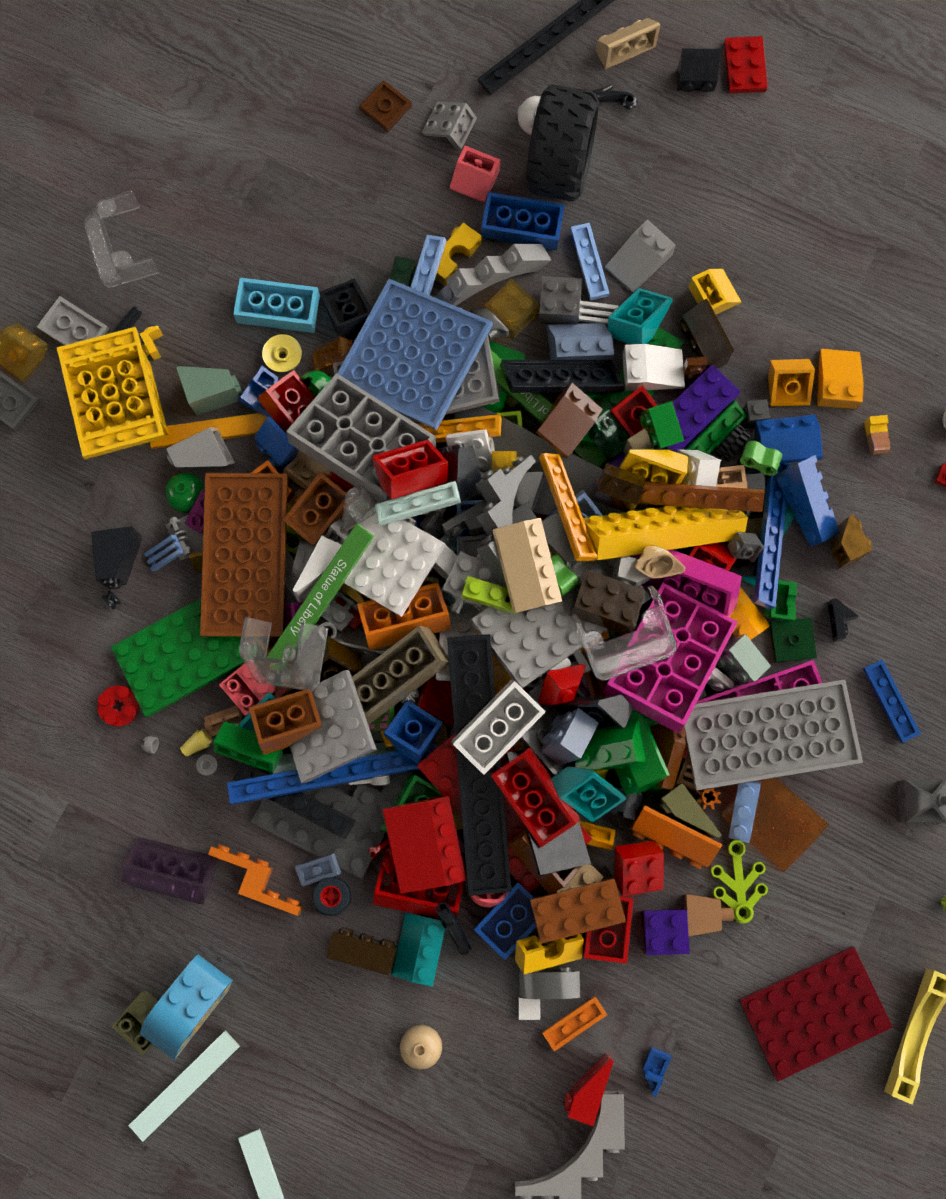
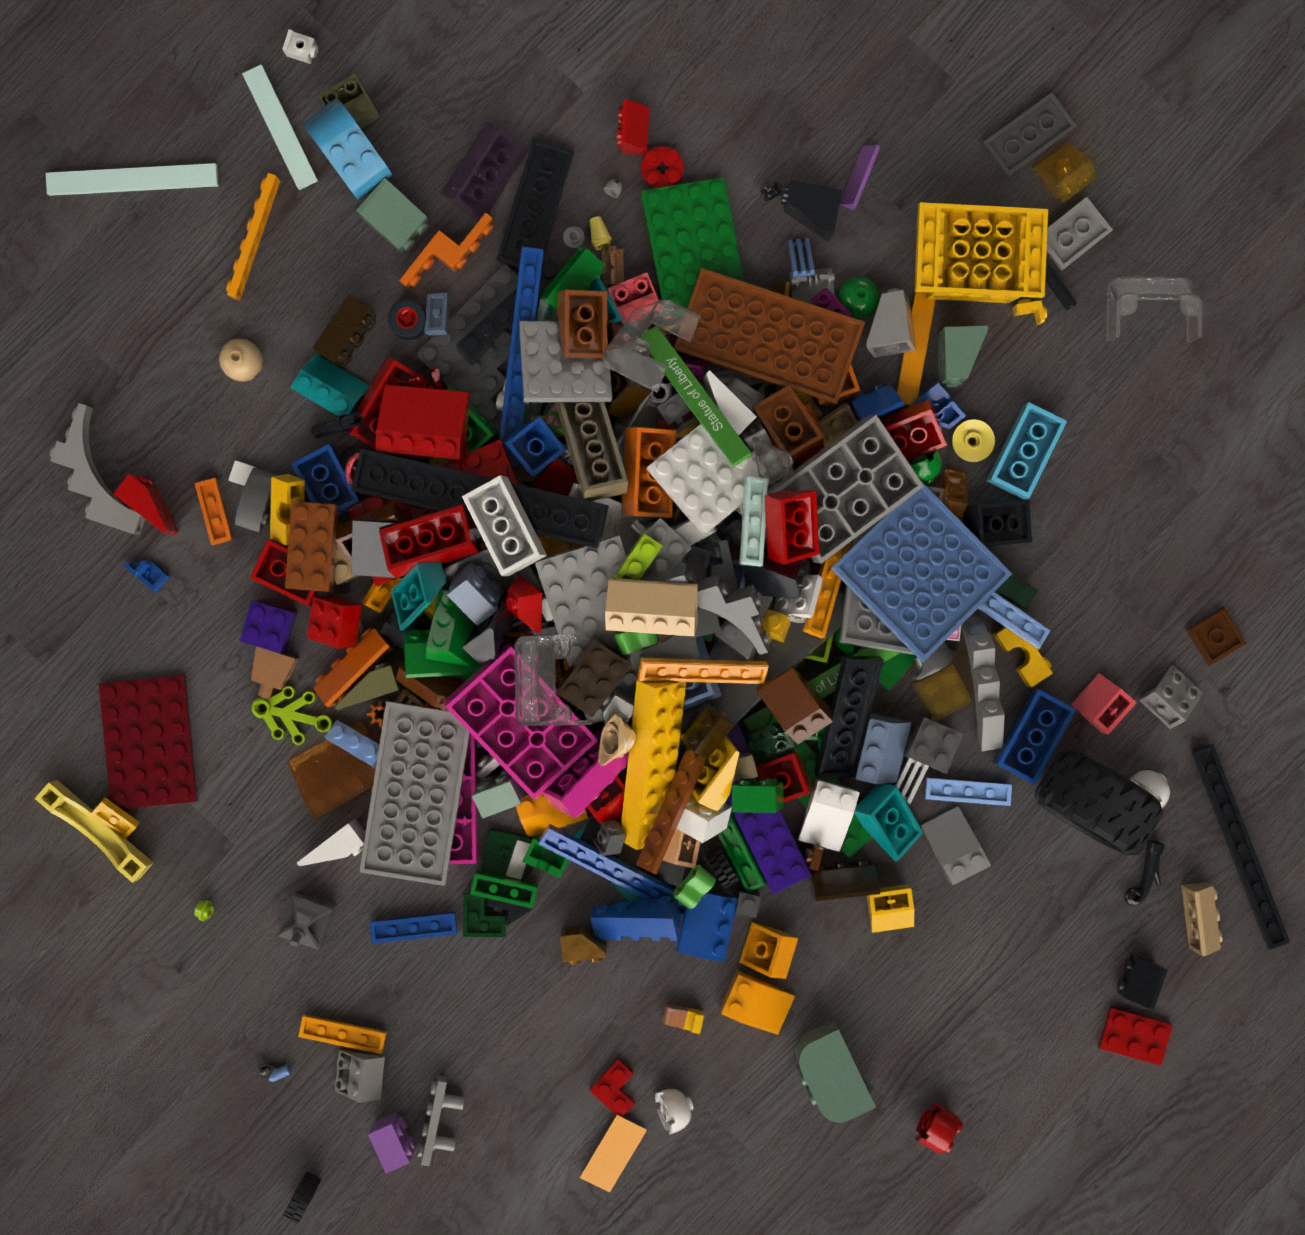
camera: 105 degrees right, 10 degrees up
(72, 525) = (859, 176): none -> medium lavender slope
(87, 742) = (634, 130): none -> red slope
(107, 1086) = (303, 54): none -> white brick
(184, 812) = (535, 200): none -> black plate
(238, 942) = (393, 216): none -> sand green slope
(289, 1075) = (255, 231): none -> light orange plate
(796, 626) = (516, 865): none -> white sticker
(825, 628) = (504, 889): none -> green brick
(843, 792) = (340, 845): none -> white slope
(864, 644) = (478, 923): none -> dark green plate
(876, 292) = (831, 1074): none -> sand green brick
(887, 191) = (938, 1128): none -> red brick
(899, 1019) = (115, 818): none -> yellow plate

